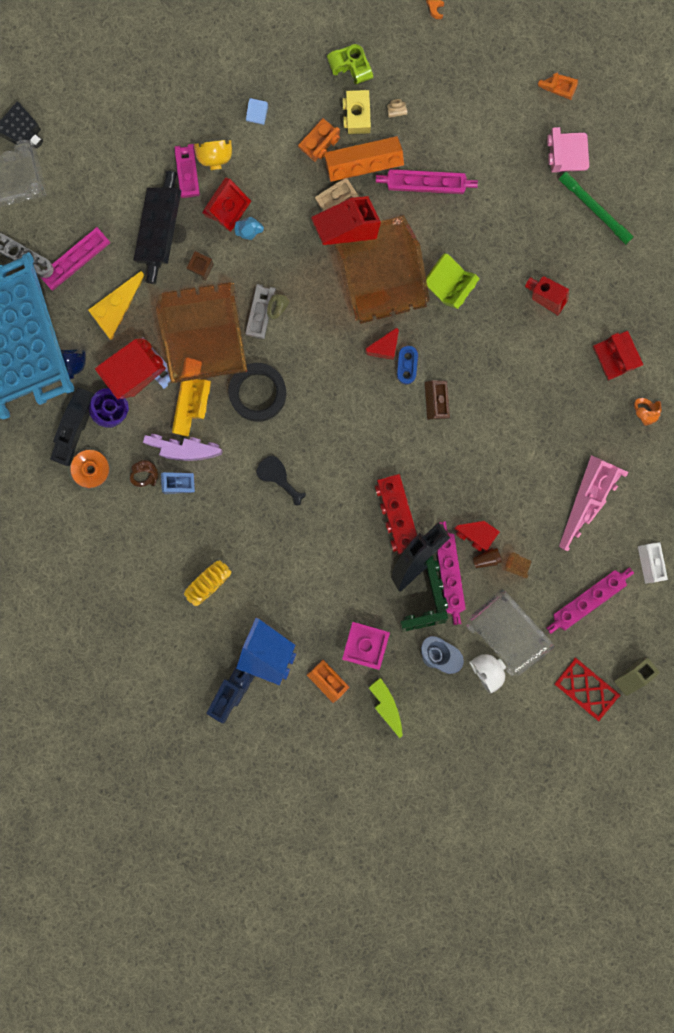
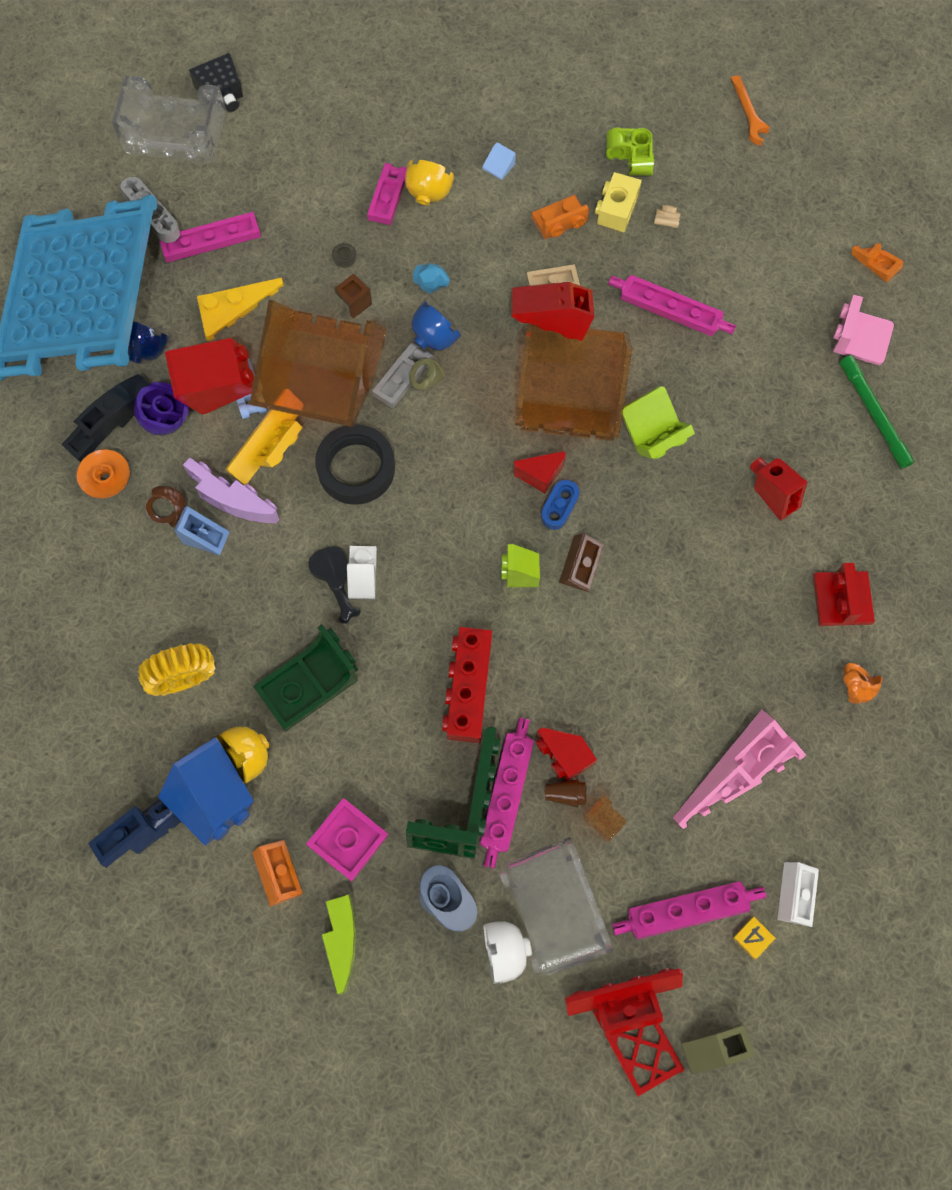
camera: 25 degrees right, 15 degrees down
(157, 226) = (323, 237): black plate -> none
(227, 204) = (416, 240): red bracket -> none
(267, 270) = (432, 329): none -> blue cylinder
(276, 616) = (245, 751): none -> yellow cylinder
(293, 554) = (308, 680): none -> dark green bracket
(295, 466) = (362, 572): none -> white slope
(364, 158) = (604, 251): orange brick -> none
(400, 422) = (520, 567): none -> lime slope
(416, 554) = (461, 749): black slope -> none
(574, 672) = (626, 1004): none -> red bracket
(635, 600) = (754, 938): none -> yellow tile

